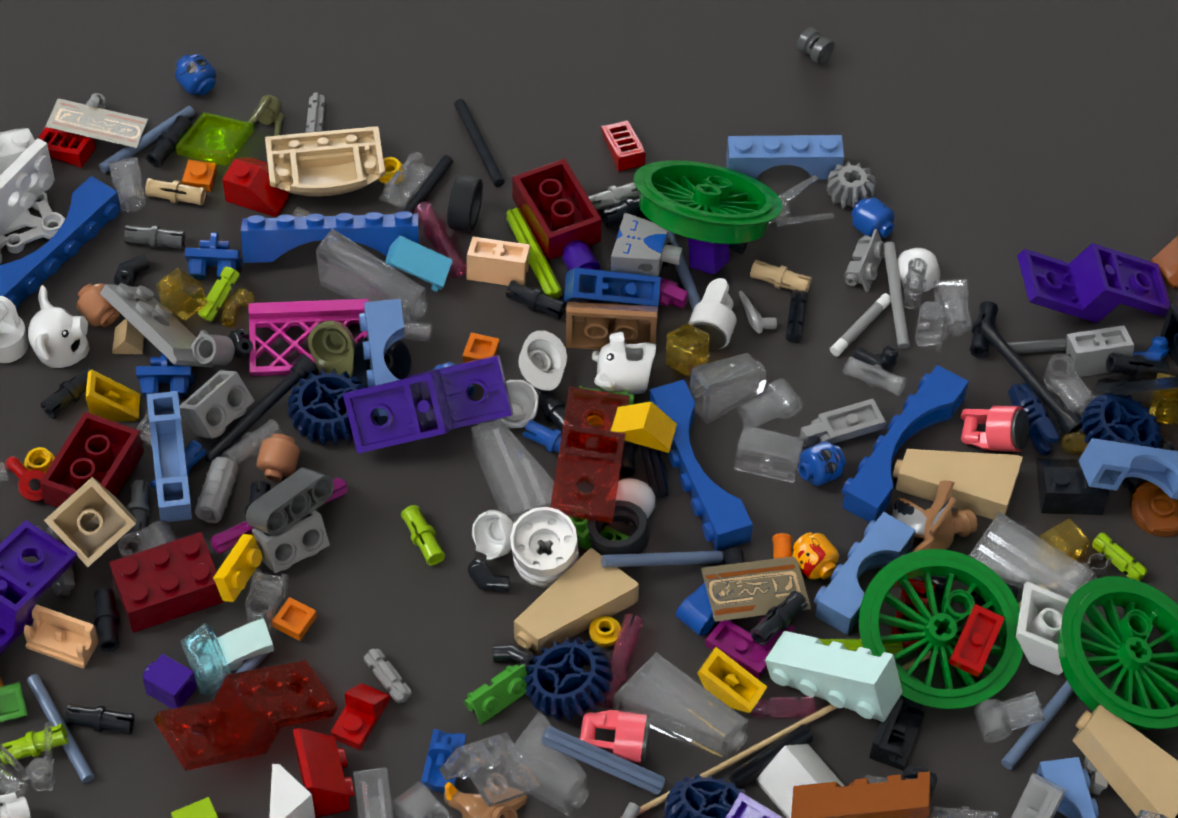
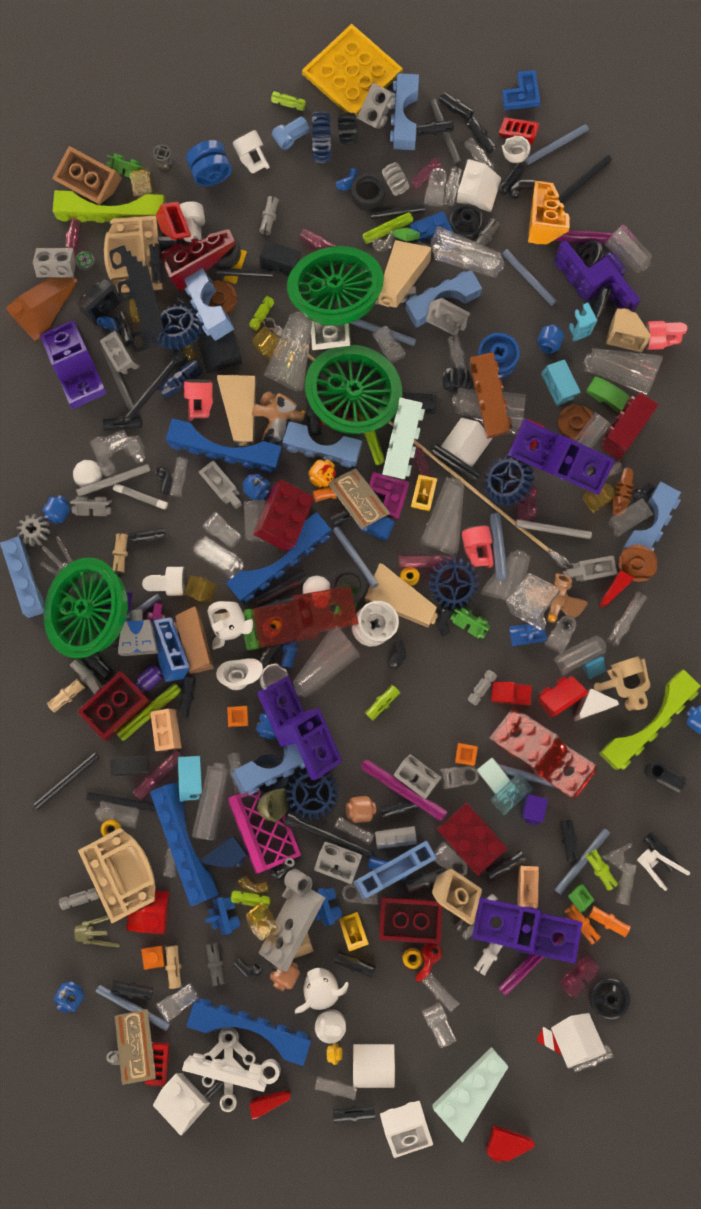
camera: 105 degrees left, 25 degrees up
(214, 139) = (120, 959): clear neon green plate -> none
(238, 567) = (445, 796): yellow plate -> none
(289, 501) = (402, 781): dark grey beam -> none
(291, 280) = (227, 854): none -> dark blue slope
(492, 534) = (371, 658): white hair -> none
(596, 166) = (66, 695): none -> tan pin
(627, 159) = (48, 686): red slope -> none
(645, 425) = (274, 593): yellow slope -> none
(754, 317) = (156, 560): light grey bar -> none
(761, 475) = (283, 515): none -> dark red brick
(778, 618) = (374, 479): black pin -> none
(976, 640) = (358, 366): red plate -> none
(1067, 384) = (152, 364): clear piece -> none

